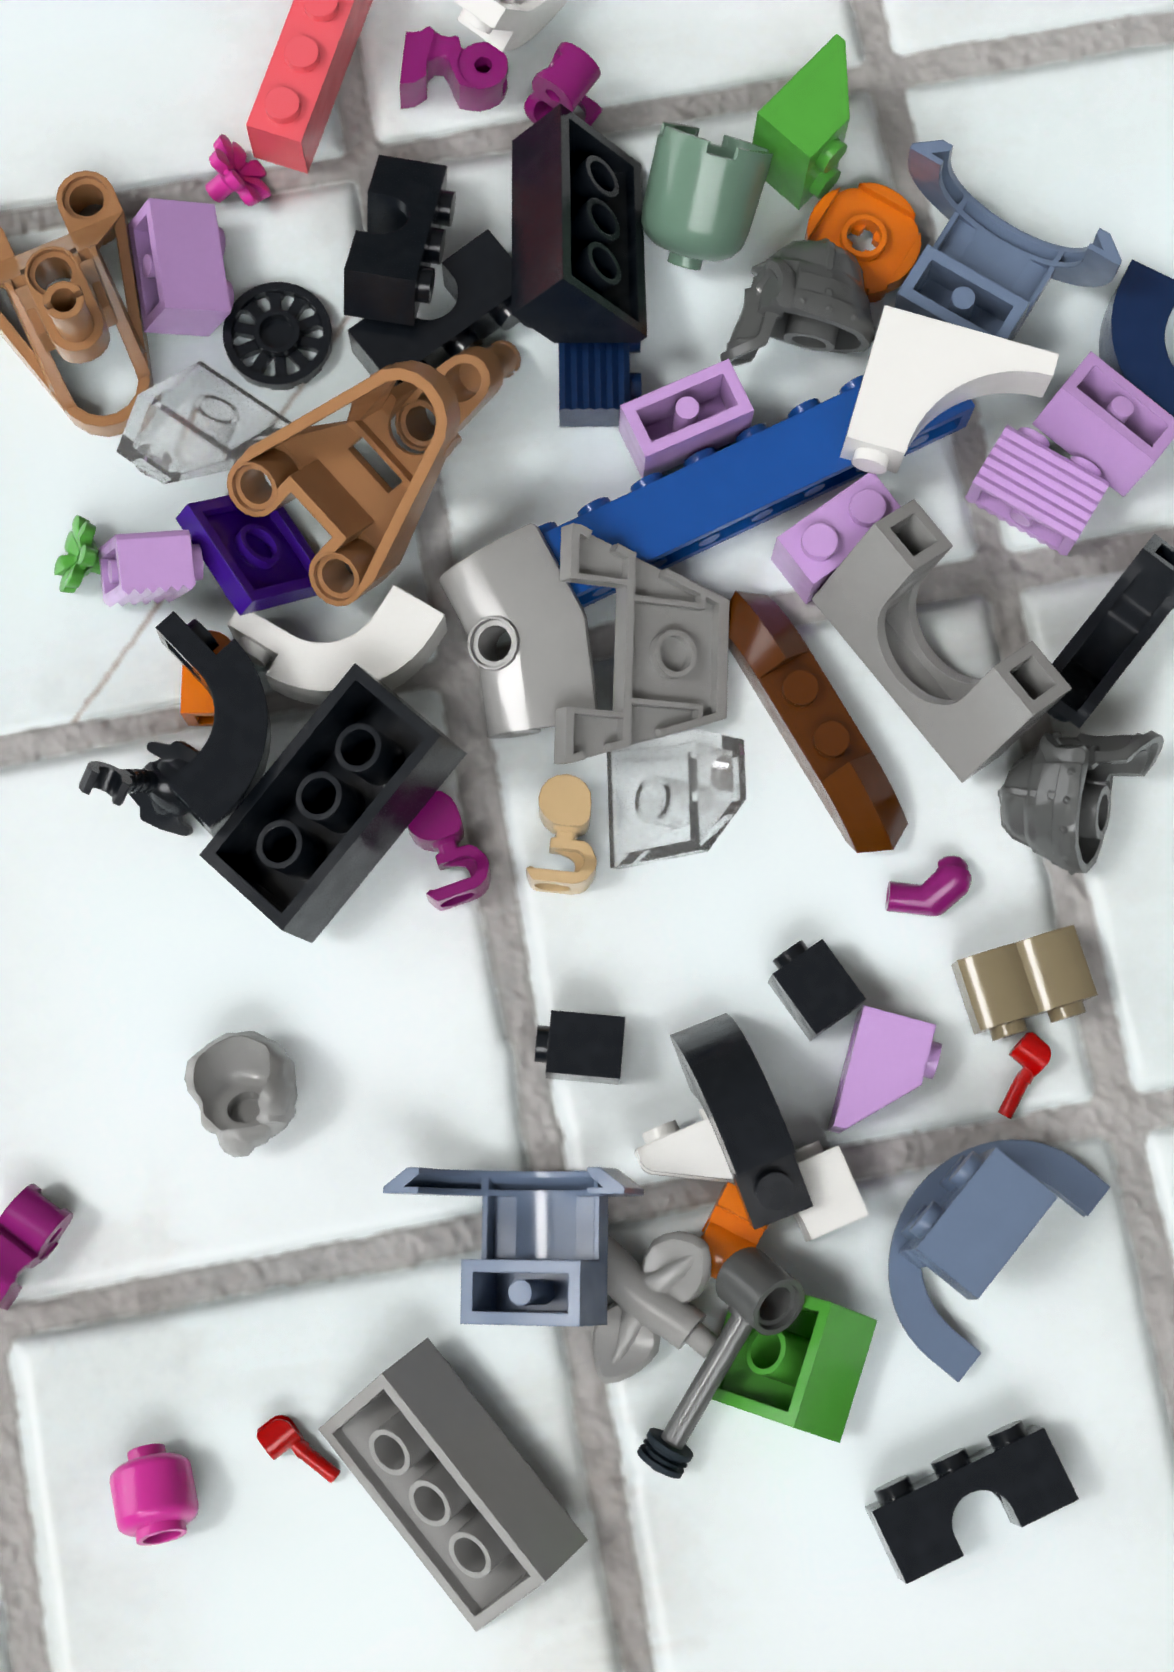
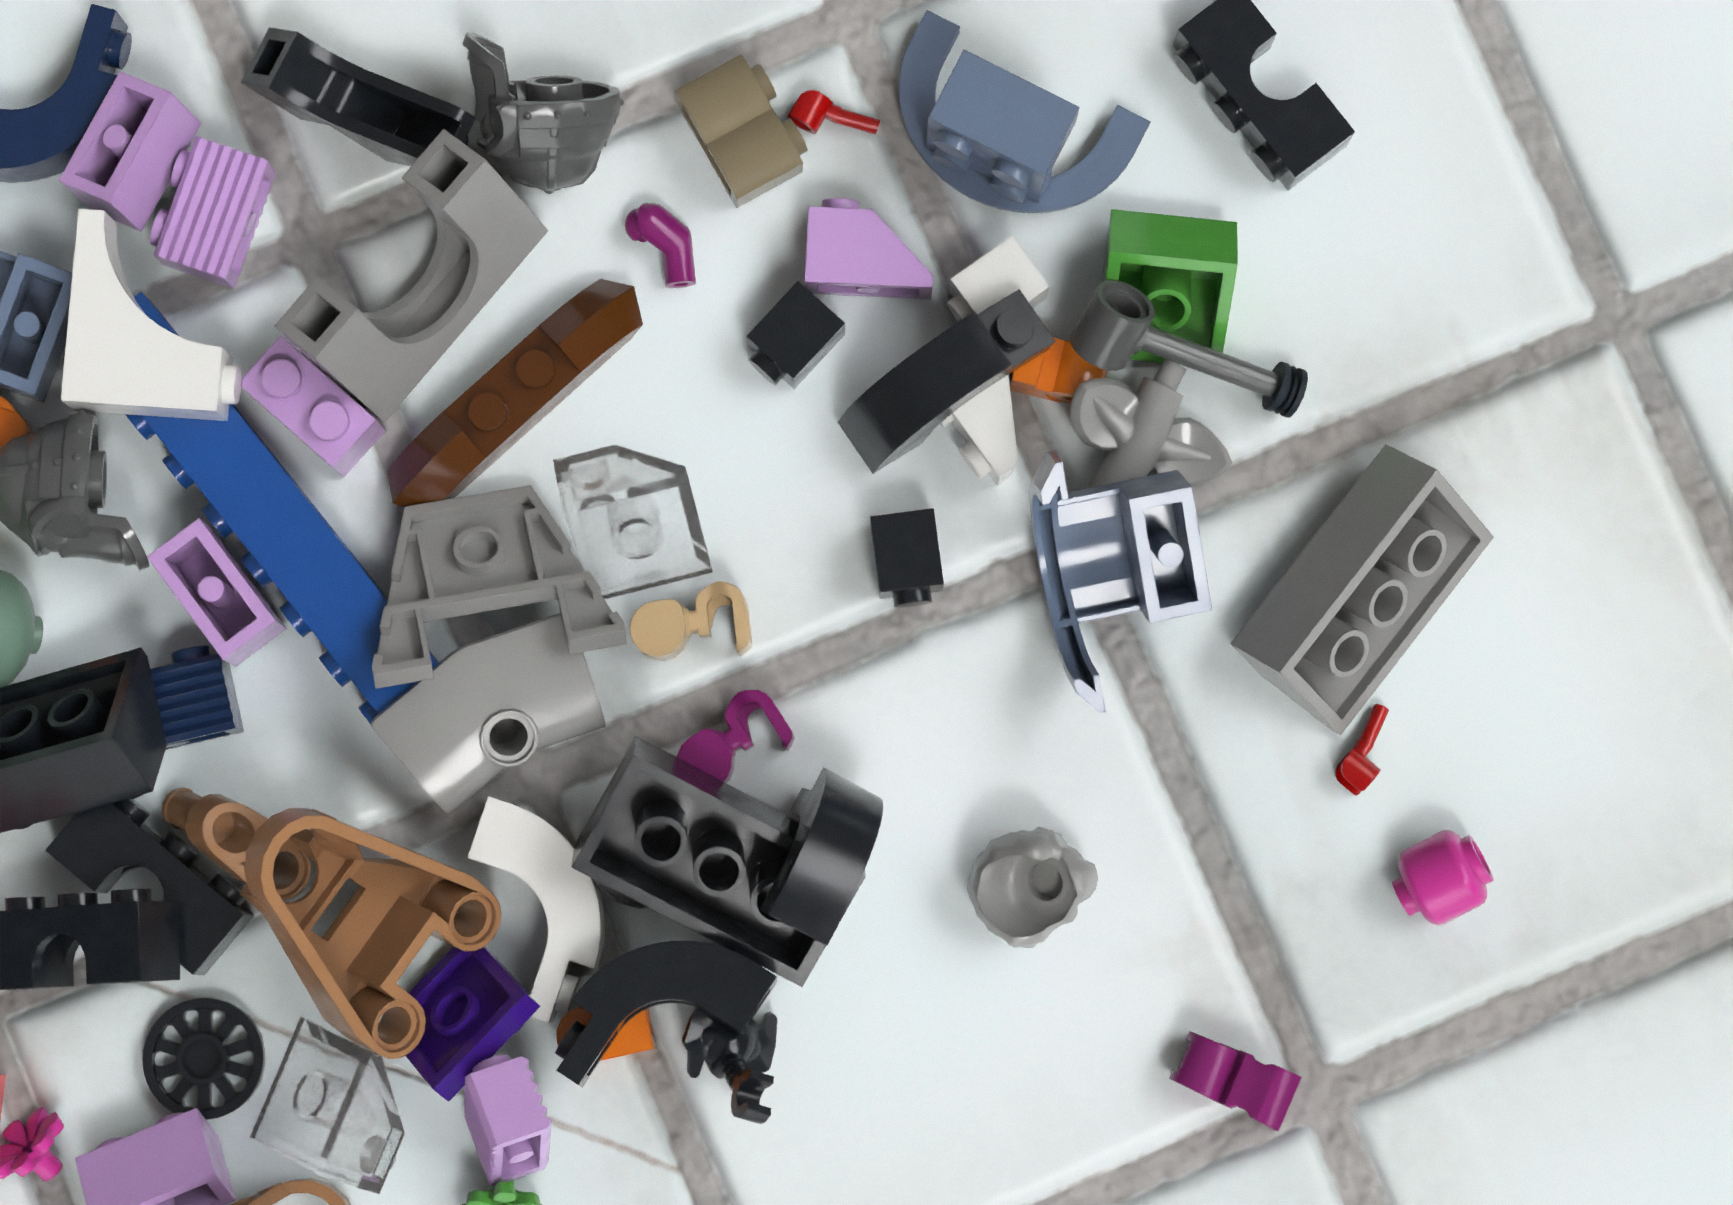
camera: 100 degrees left, 5 degrees up
(307, 893) = (826, 856): none -> black arch

